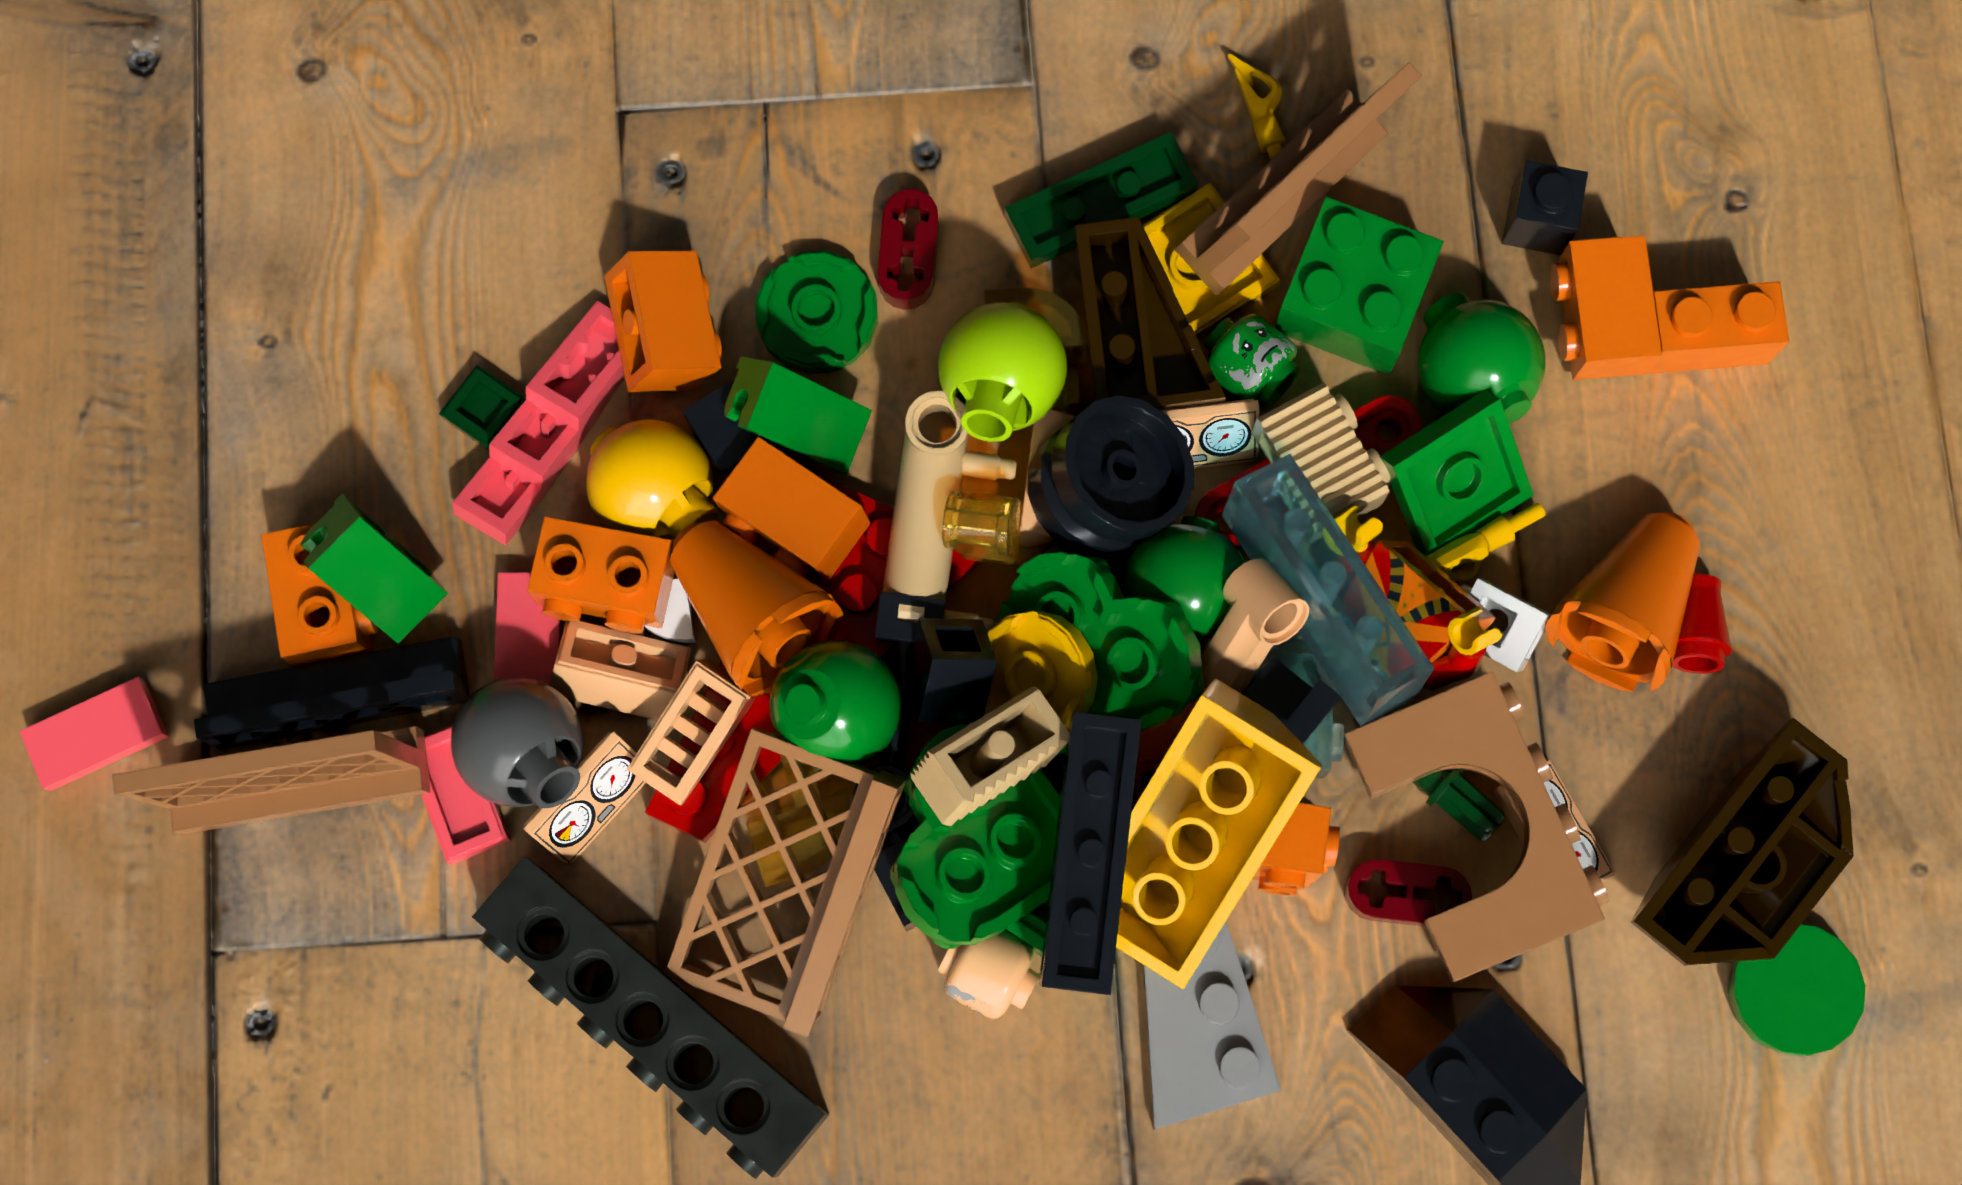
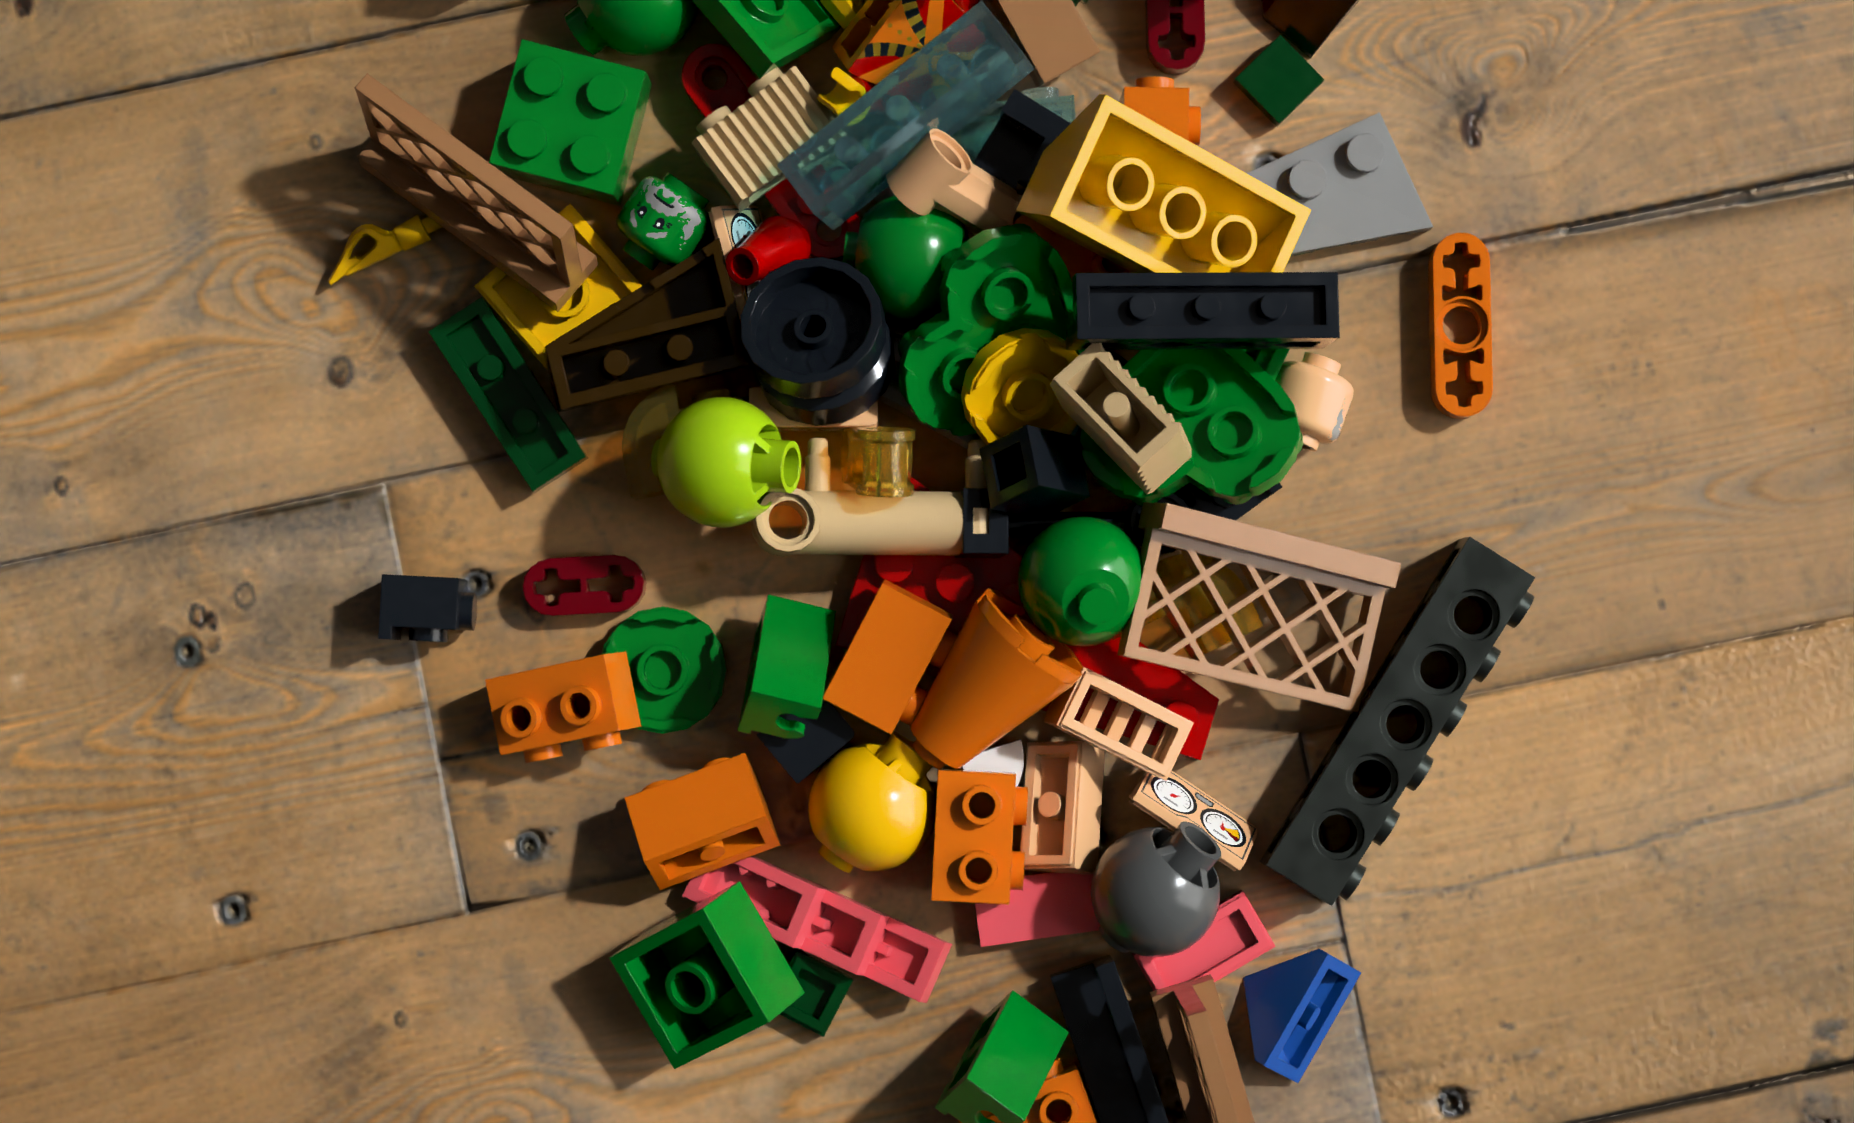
camera: 105 degrees left, 10 degrees up
(380, 874) = (1294, 1009): none -> blue slope
(511, 303) = (707, 975): none -> green brick
(794, 208) = (564, 704): none -> orange brick
(908, 97) = (425, 606): none -> black brick
(1099, 1135) = (1445, 279): none -> orange beam
(1212, 450) = (768, 248): none -> red cone
(1326, 991) = (1278, 80): none -> dark green tile

